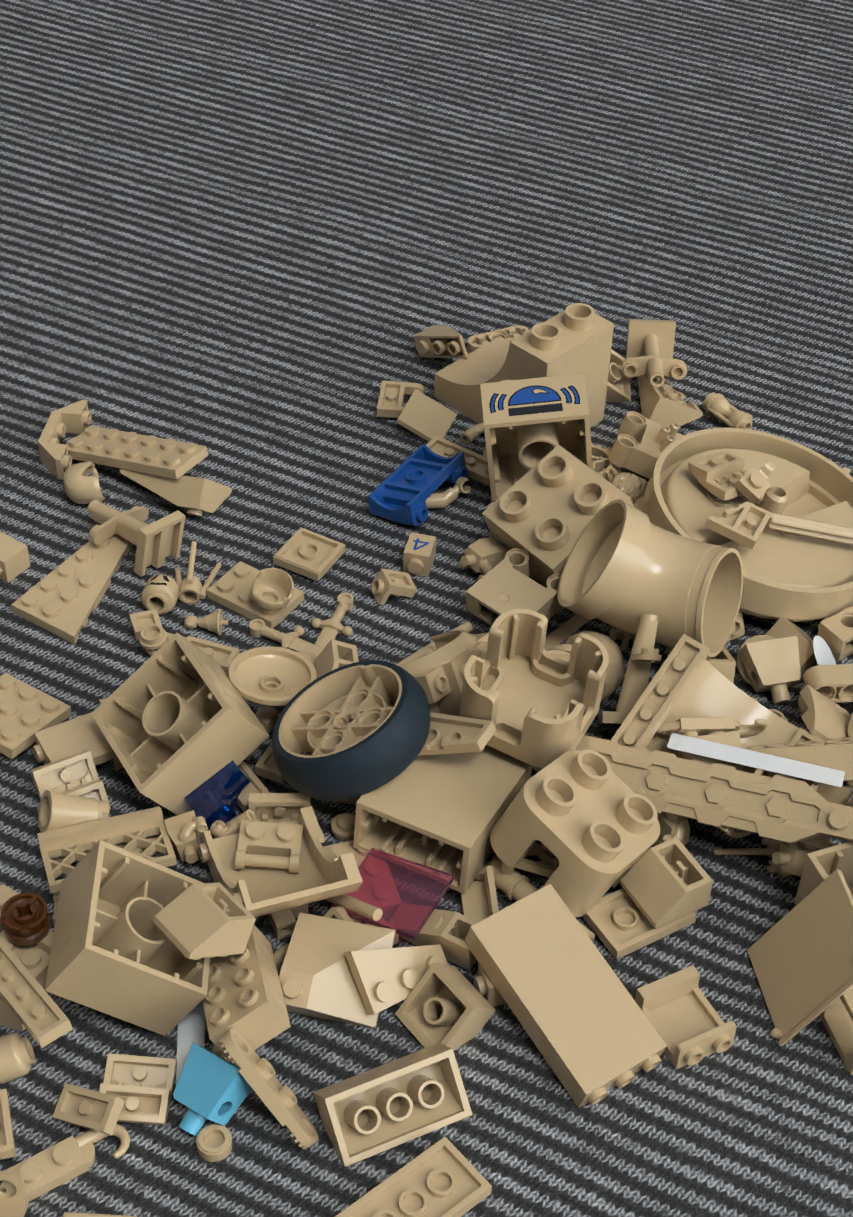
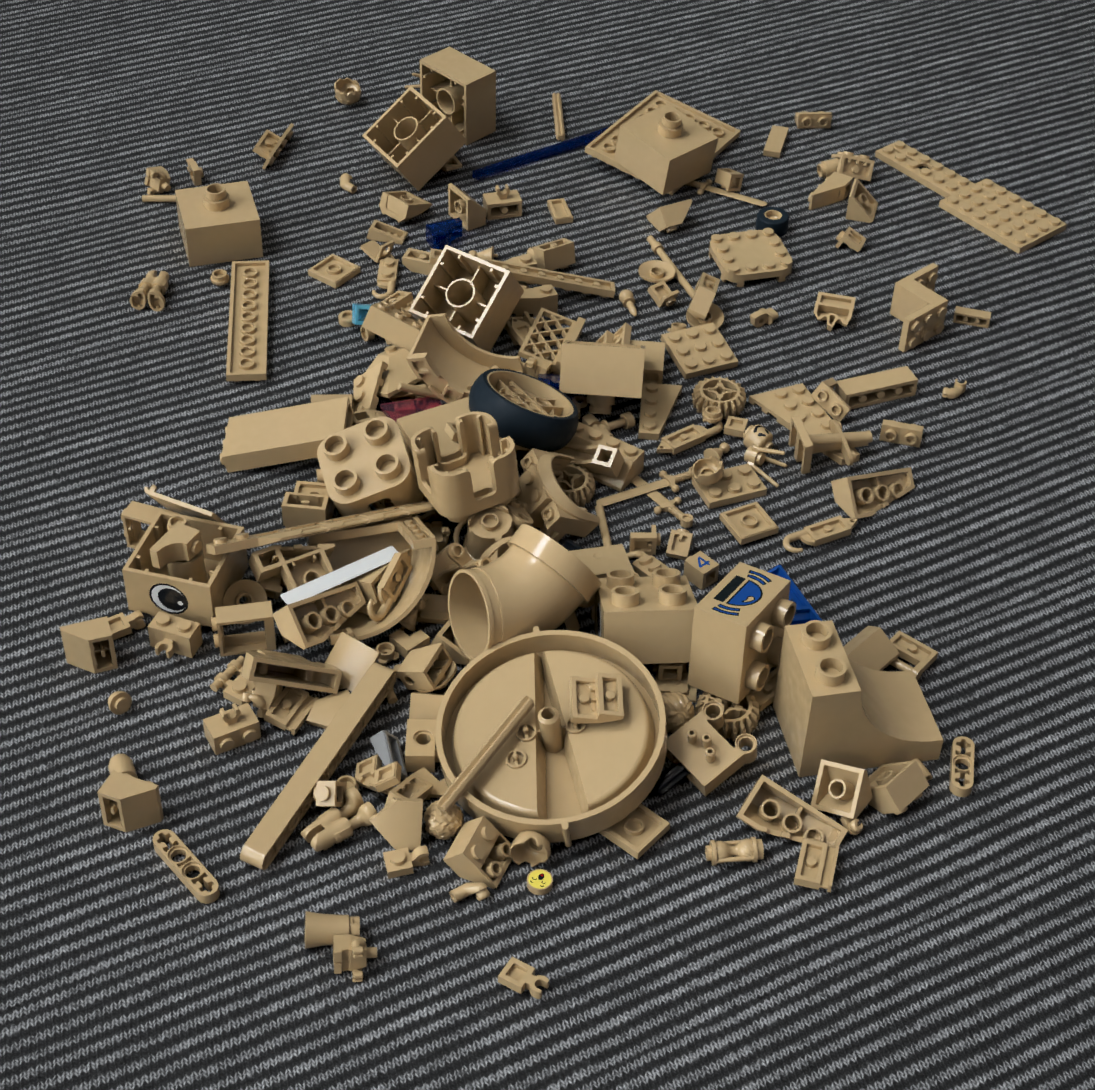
camera: 125 degrees right, 0 degrees up
(25, 919) = (526, 282): reddish brown wheel -> none
(33, 566) = (830, 400): none -> tan bracket
(47, 505) = (901, 433): none -> tan bracket
(64, 420) = (952, 449): tan slope -> none
(64, 810) = (593, 328): tan plant -> none
(80, 486) = (901, 448): tan helmet -> none
(88, 1109) = (406, 284): tan plate -> none
(102, 656) = (721, 393): none -> tan gear
(136, 451) = (922, 476): tan plate -> none
(206, 922) = (436, 301): tan slope -> none
(262, 1079) = (342, 321): tan plate -> none
(270, 675) = (610, 417): tan dish -> none
(277, 501) = (820, 532): none -> tan plate
(393, 1103) = (304, 369): tan slope -> none
(417, 607) = (645, 541): none -> tan bracket
(440, 342) = (962, 704): tan slope -> none
(464, 575) = (645, 563): none -> tan plate
(651, 351) = (854, 836): tan piece -> none
(684, 1018) = (232, 487): tan panel -> none
(698, 374) = (816, 865): none -> tan plate
(741, 523) = (532, 670): tan wing -> none
(754, 482) = (566, 699): tan plate -> none
(822, 652) = (403, 703): white sticker -> none

